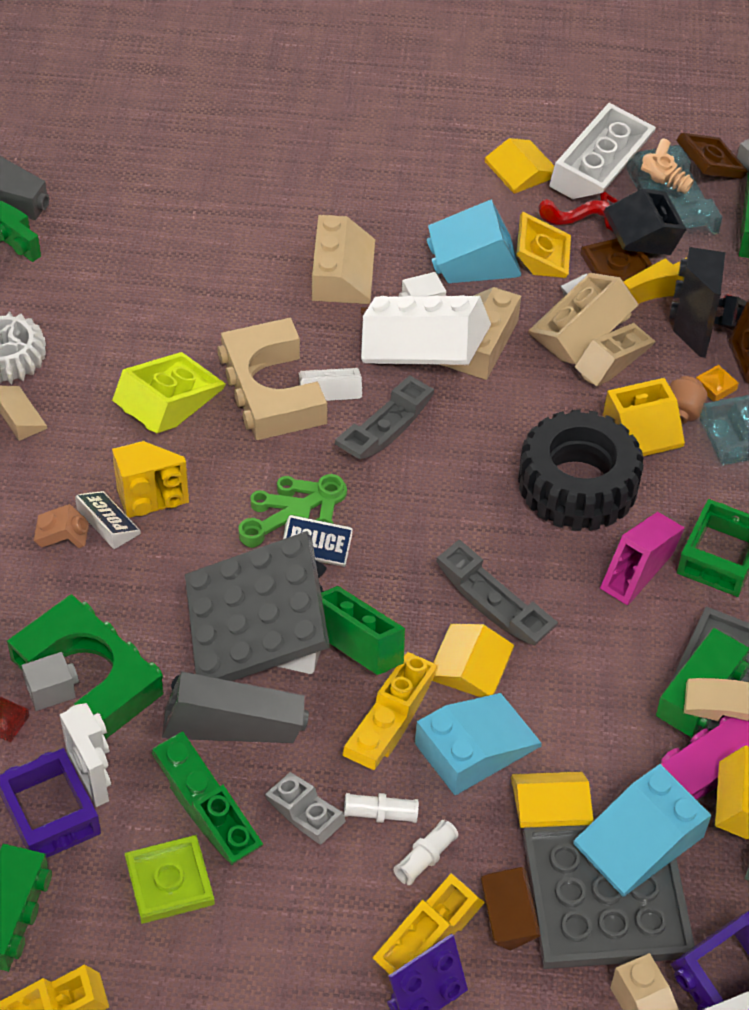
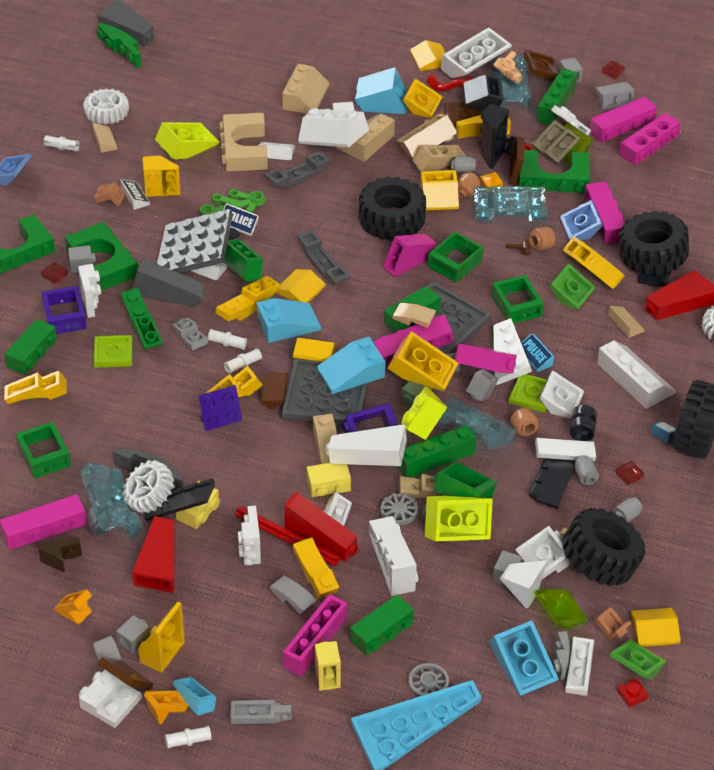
camera: 15 degrees right, 5 degrees down
(661, 359) = (463, 164): none -> light grey brick

